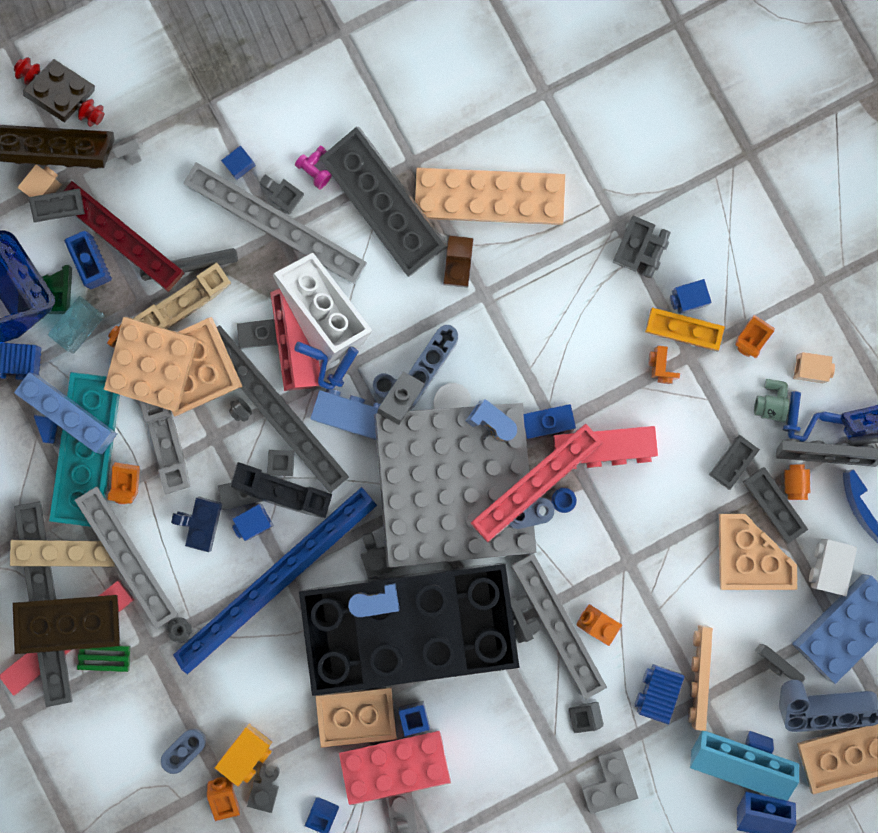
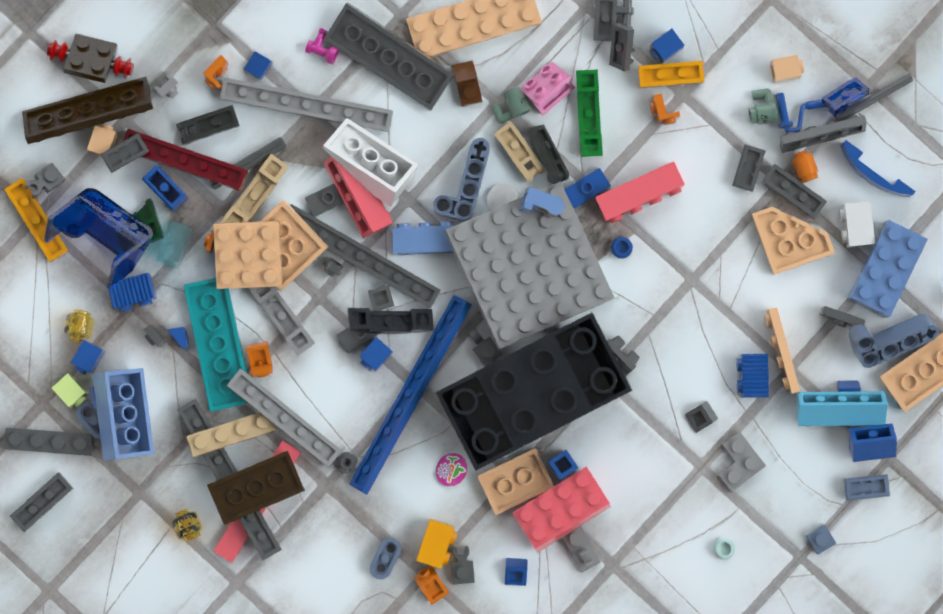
camera: 20 degrees left, 0 degrees up
(19, 417) = (154, 336): none -> dark grey plate
(65, 413) = (193, 318): medium blue brick -> none
(96, 667) = (275, 512): green tile -> none
(161, 207) = (208, 124): none -> pearl dark grey plate
(191, 150) = (217, 68): none -> orange bracket
(201, 523) = (334, 370): dark blue plate -> none
(284, 194) = (305, 79): dark grey plate -> none
(290, 678) = (451, 469): none -> sticker
(336, 378) = (403, 211): blue piece -> none
(374, 604) = (492, 381): medium blue leg -> none
(400, 398) = (461, 210): plate -> none
(488, 355) = (519, 151): none -> tan plate
(504, 303) = (516, 104): none -> sand green piece
(519, 370) = (548, 154): none -> pearl dark grey plate
(532, 517) = (597, 266): sand blue plate -> none
(536, 483) = (594, 240): coral tile -> none
(544, 296) = (548, 87): none -> bright pink bracket
(559, 626) = (653, 350): light grey plate -> none
(580, 340) = (589, 113): none -> green slope
(598, 625) = (685, 338): orange bracket -> none
(641, 280) = (621, 47): none -> dark grey plate
(754, 337) = (729, 61): orange bracket -> none

